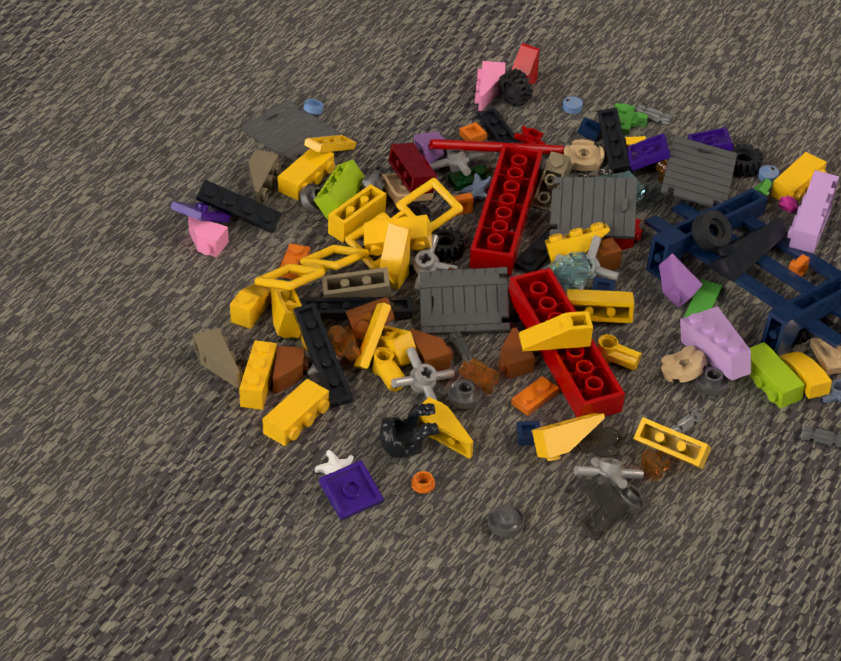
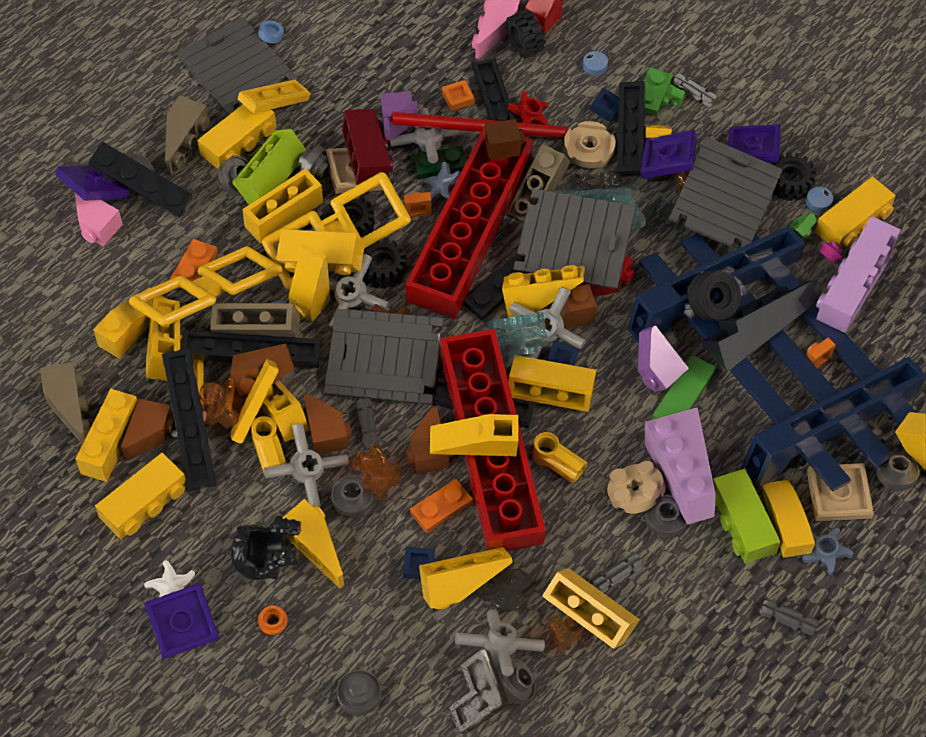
camera: 10 degrees right, 15 degrees up
(521, 149) = (503, 139): none -> reddish brown brick

